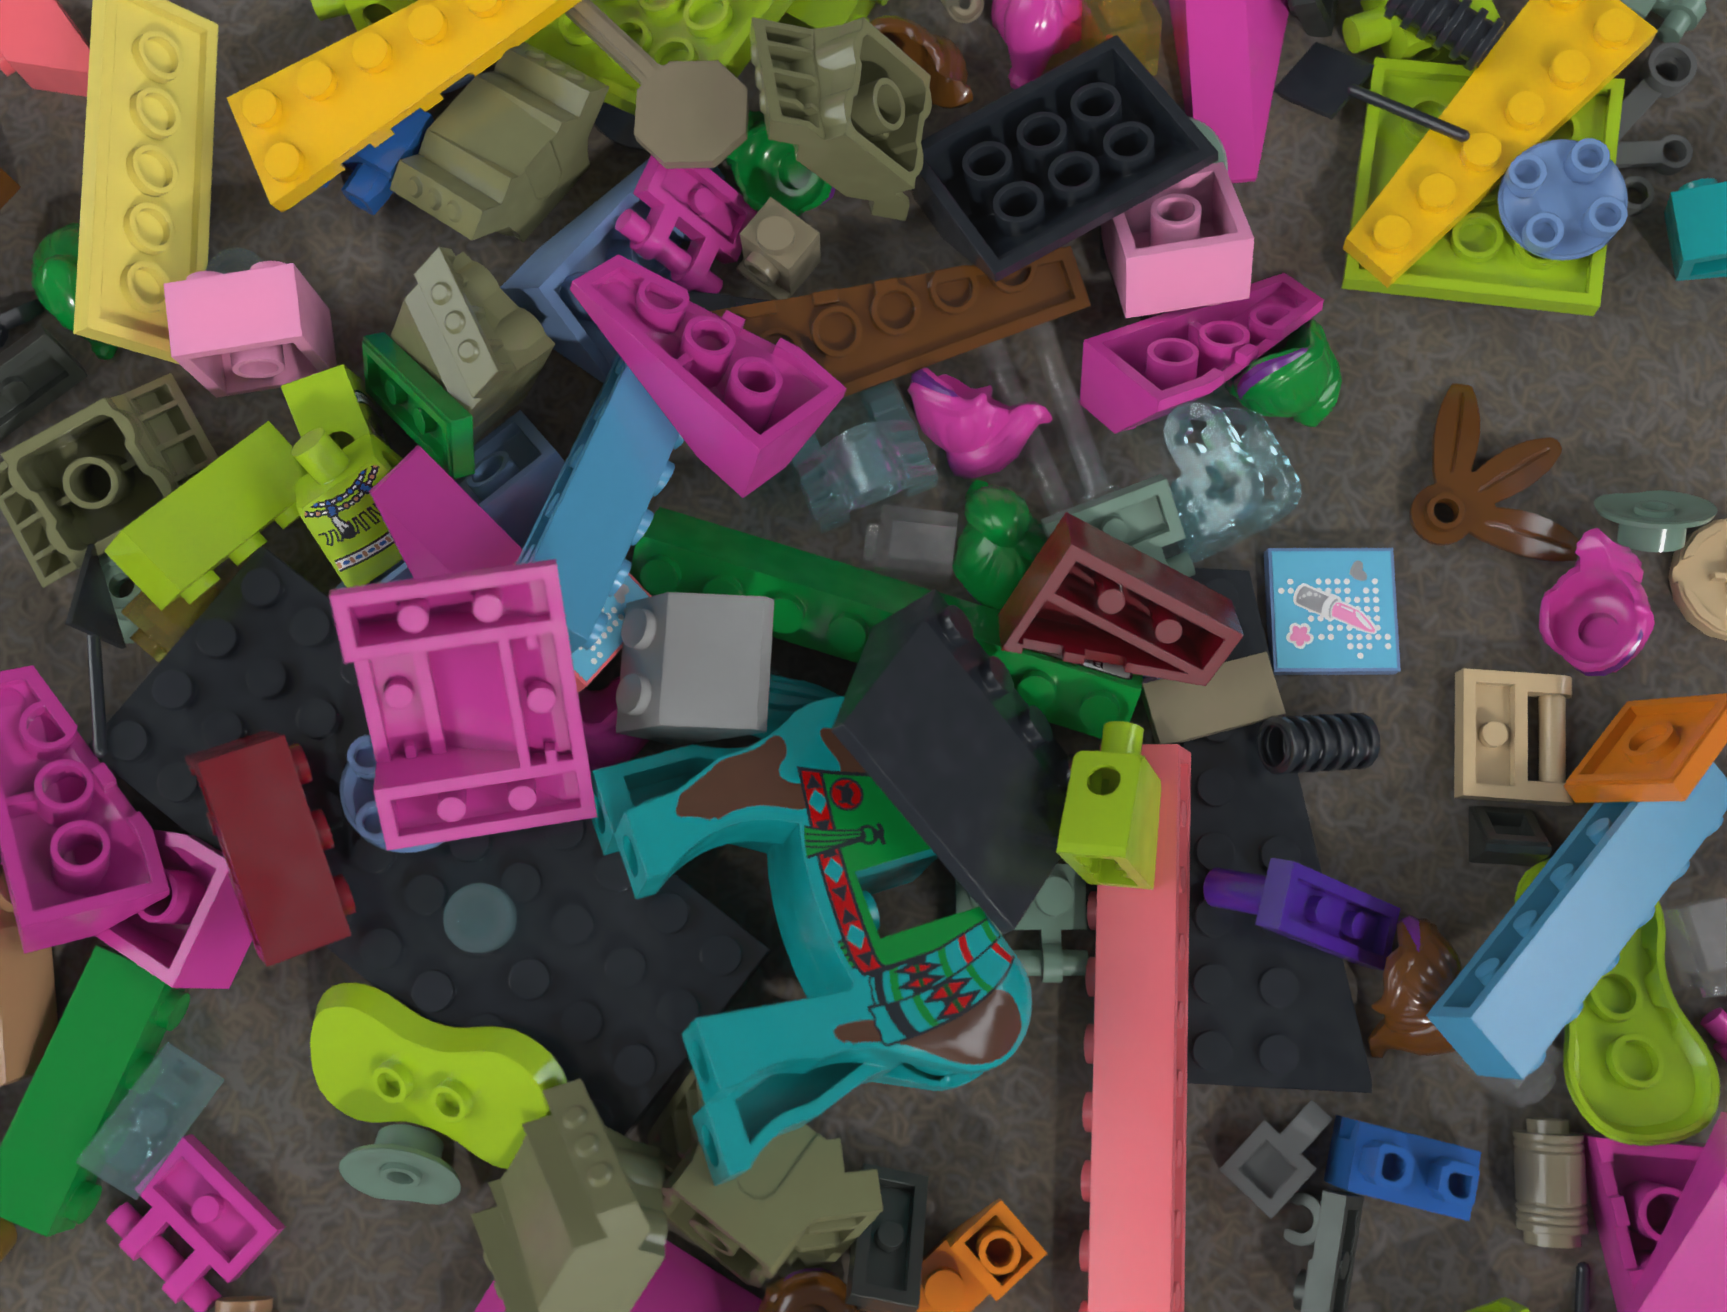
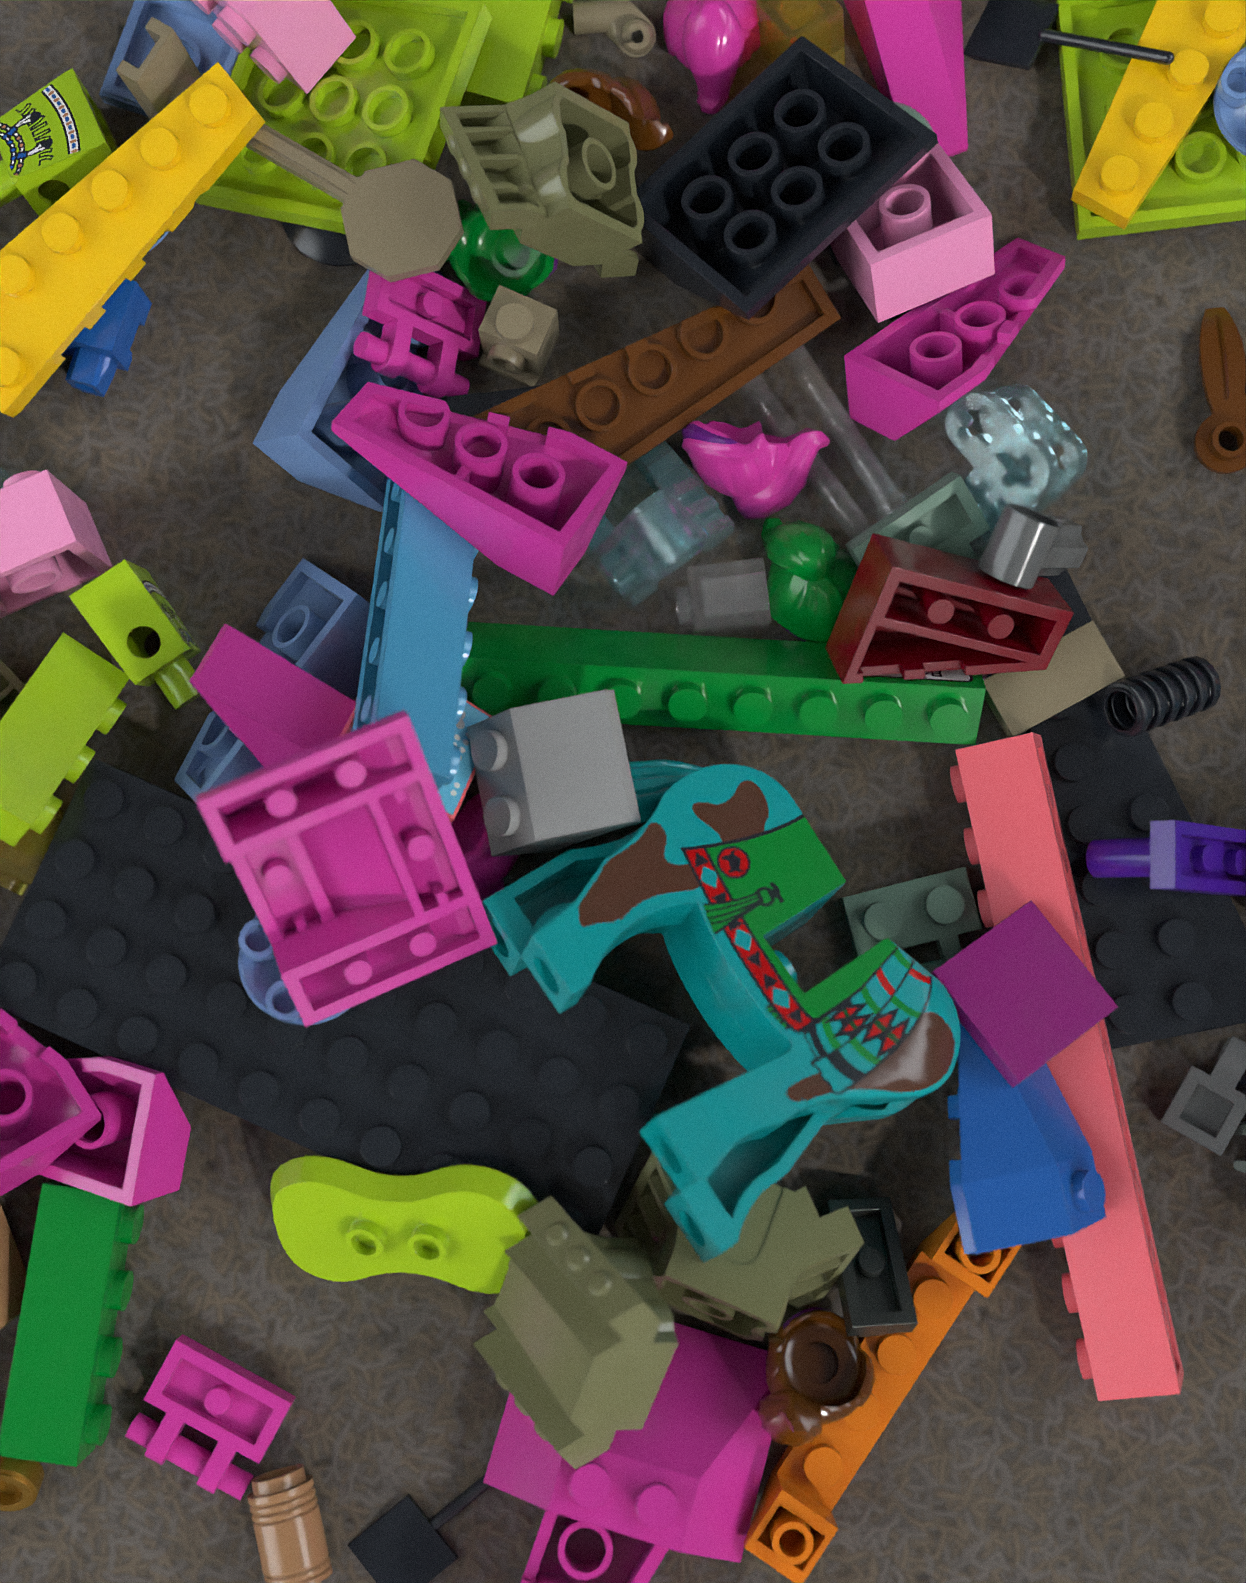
camera: 15 degrees left, 5 degrees up
(150, 1121) = (142, 1334): clear light blue plate -> none
(273, 844) = (192, 1047): dark red wedge -> none
(338, 504) = (161, 701): lime torso -> none
(402, 1166) = (393, 1313): sand green piece -> none
(419, 405) = (210, 580): green tile -> none
(471, 337) = (235, 519): olive slope -> none
(479, 918) = (408, 1066): clear light blue tile -> none
(505, 147) = (218, 296): olive slope -> none
(959, 754) = (833, 795): black slope -> none
(1064, 1149) = (1022, 1158): none -> blue wedge
(1104, 998) = (1023, 993): none -> magenta tile
(1112, 812) = (991, 838): lime torso -> none
(1220, 561) = (1031, 546): none -> dark grey piece
(1295, 381) = (1055, 344): green hair -> none
(1331, 611) = (1144, 564): medium azure tile -> none

